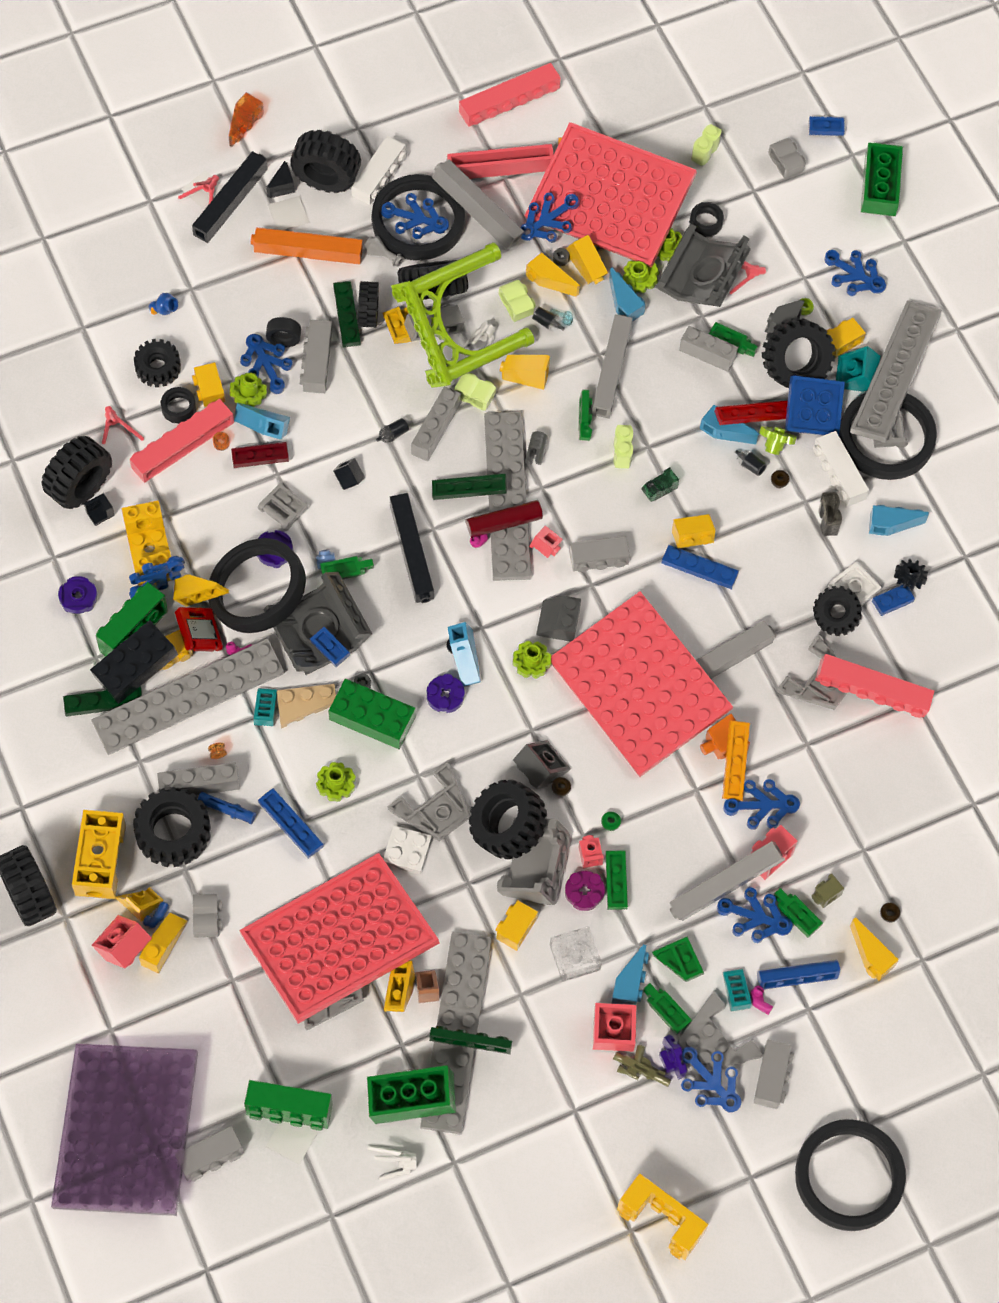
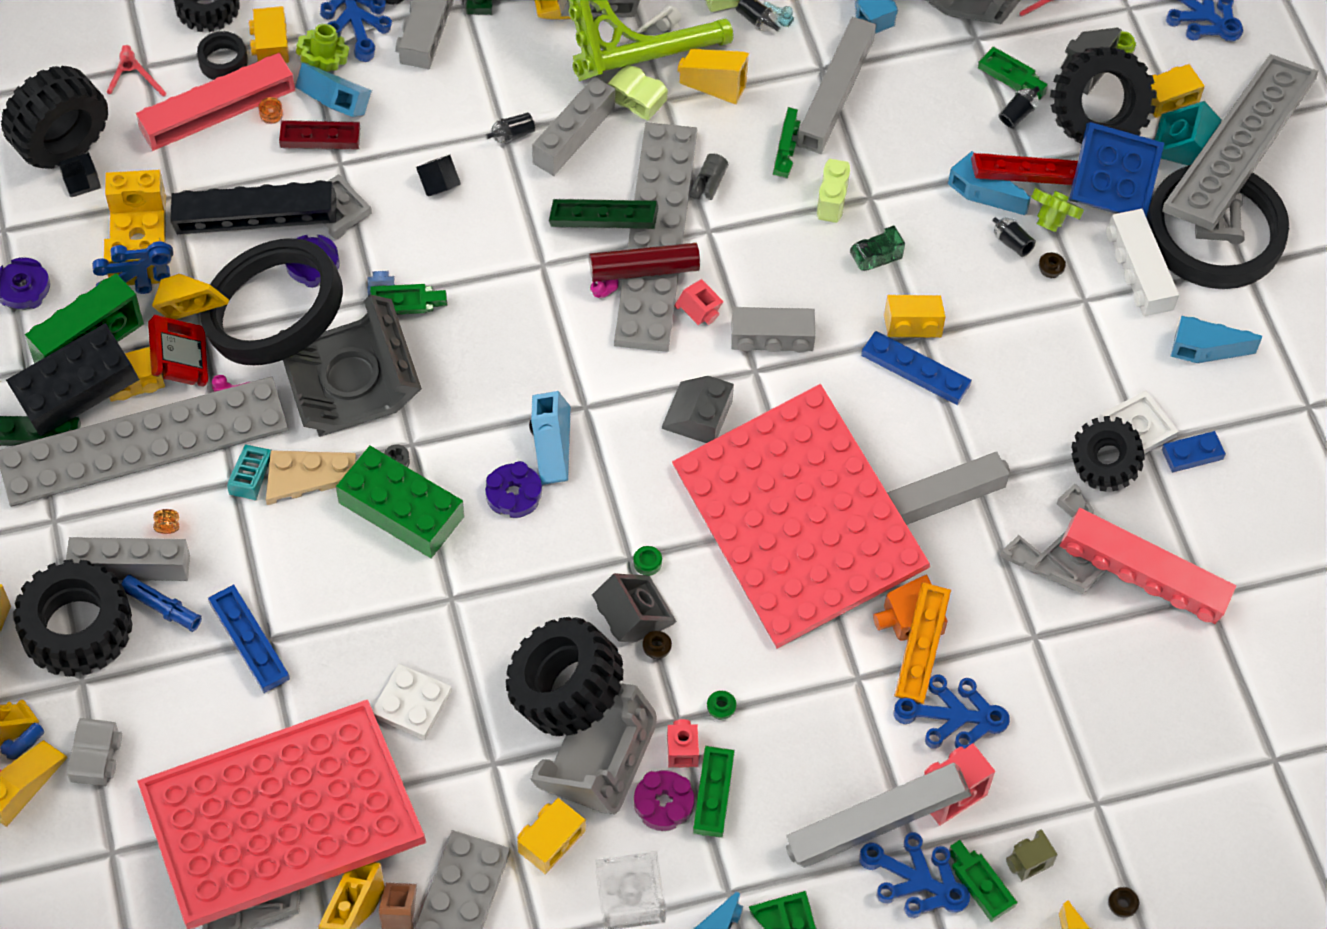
camera: 10 degrees right, 5 degrees down
(227, 517) = (253, 207): none -> black brick
(330, 647) = (358, 400): blue plate -> none
(335, 781) = (327, 589): lime plant -> none
(411, 548) = (505, 285): black brick -> none
(439, 814) = (469, 657): light grey wing -> none
(531, 659) = (648, 459): lime plant -> none
(544, 729) = (647, 560): none -> green tile
(708, 348) = (976, 78): light grey brick -> none
(741, 365) = (1019, 107): none -> black piece
(830, 514) = (1117, 319): clear smoke brick -> none
(911, 574) = (1224, 419): black gear -> none

